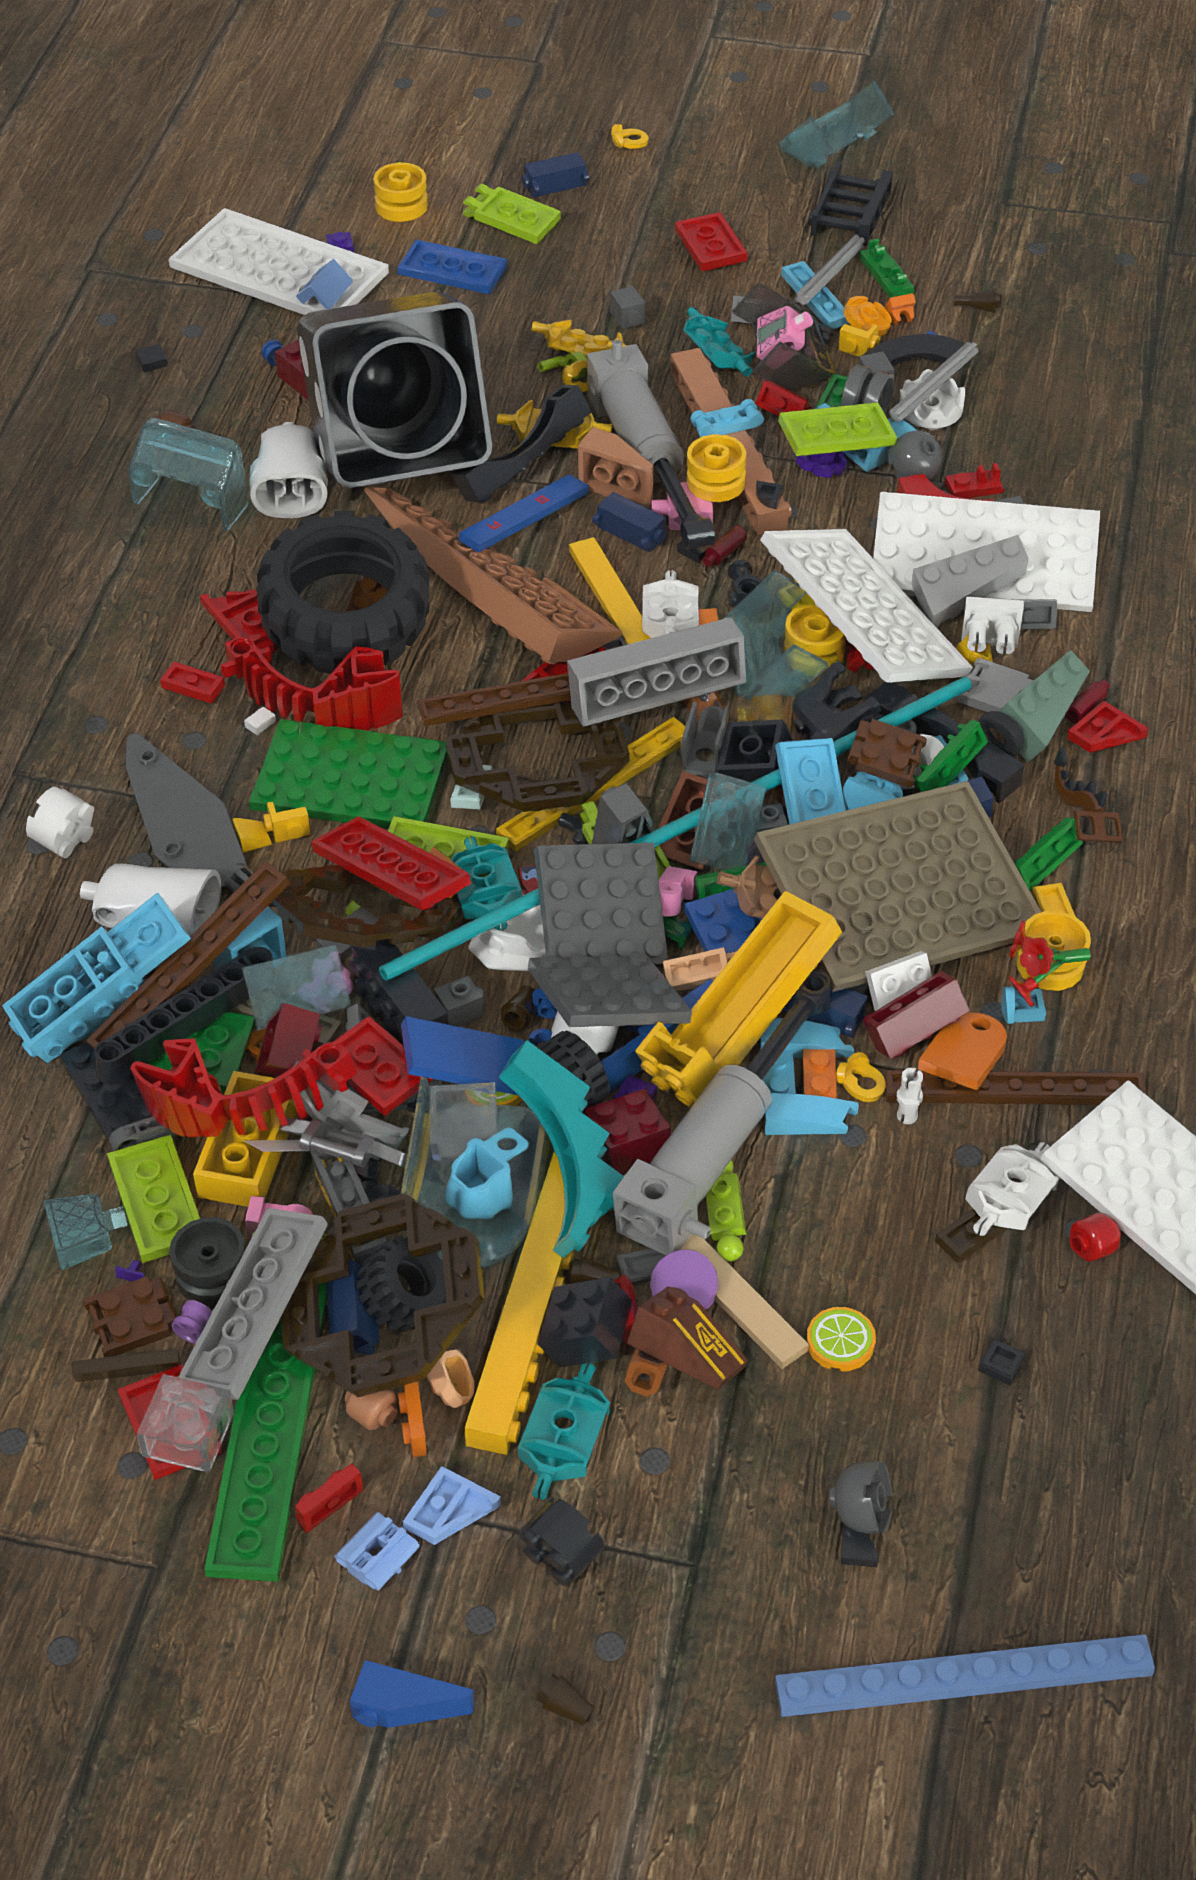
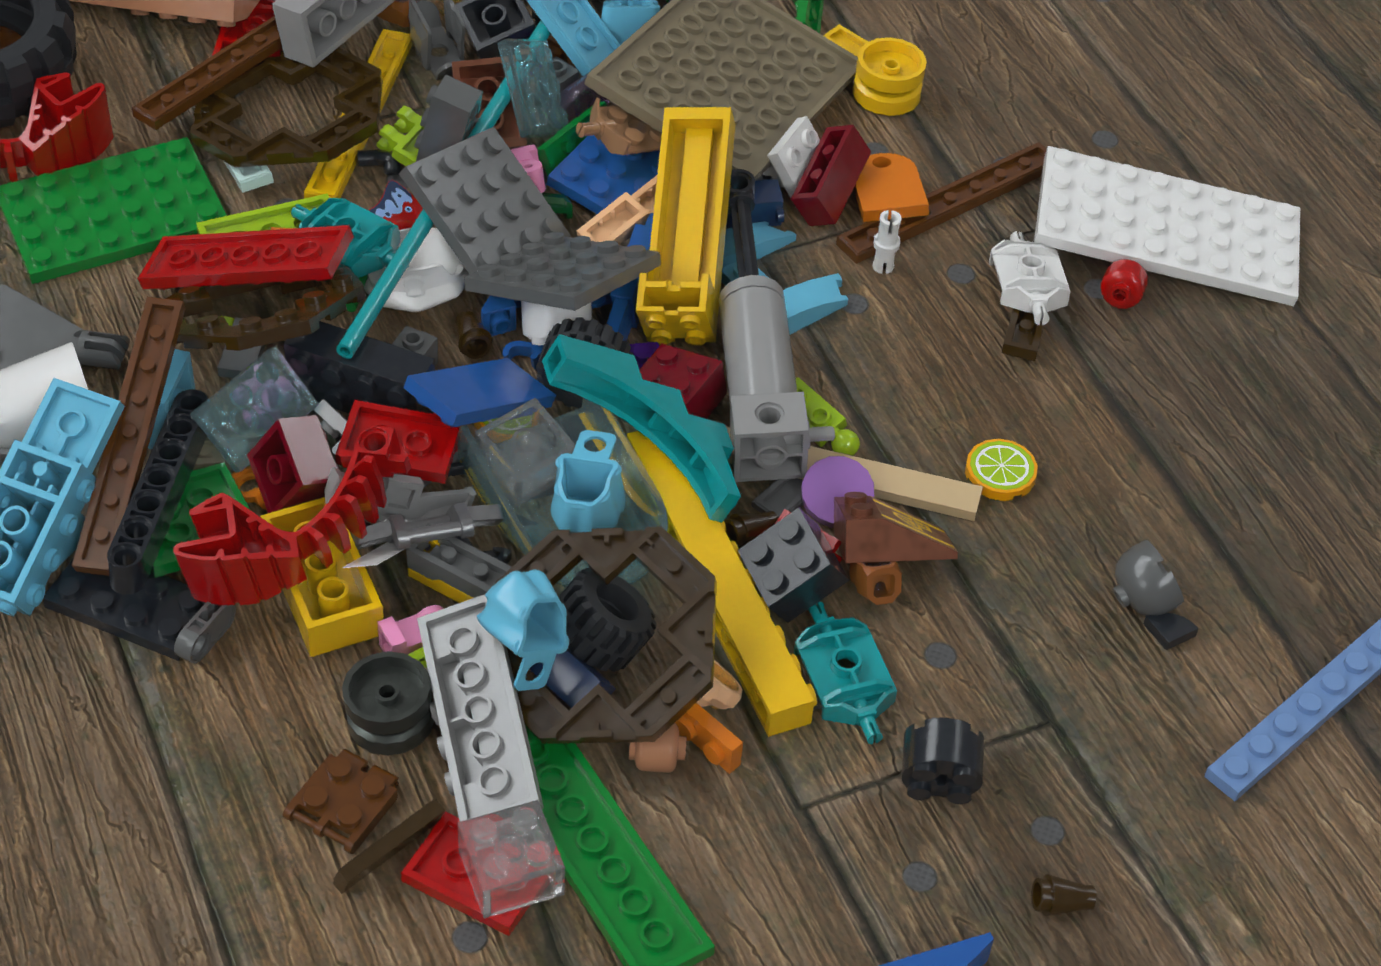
camera: 40 degrees left, 0 degrees up
(81, 1227) = (218, 746): clear light blue torso -> none
(130, 1274) = (307, 762): dark purple piece -> none
(153, 1194) = (270, 678): lime plate -> none
(192, 1321) = (417, 769): medium lavender wheel -> none
(250, 834) = (59, 302): yellow slope -> none
(287, 824) = (90, 277): yellow bracket -> none
(319, 1254) = (528, 620): none -> medium azure piece
(328, 1498) = (697, 836): red plate -> none
(378, 1569) = (792, 855): light blue piece -> none
(449, 1506) = (808, 794): light blue wing -> none
(819, 1072) = (784, 265): orange plate -> none
(859, 1064) = (810, 242): yellow piece -> none
(1001, 1362) = (1139, 420): black tile -> none
(1016, 1008) = (895, 134): medium azure tile -> none
(1037, 960) = (906, 75): red plant -> none

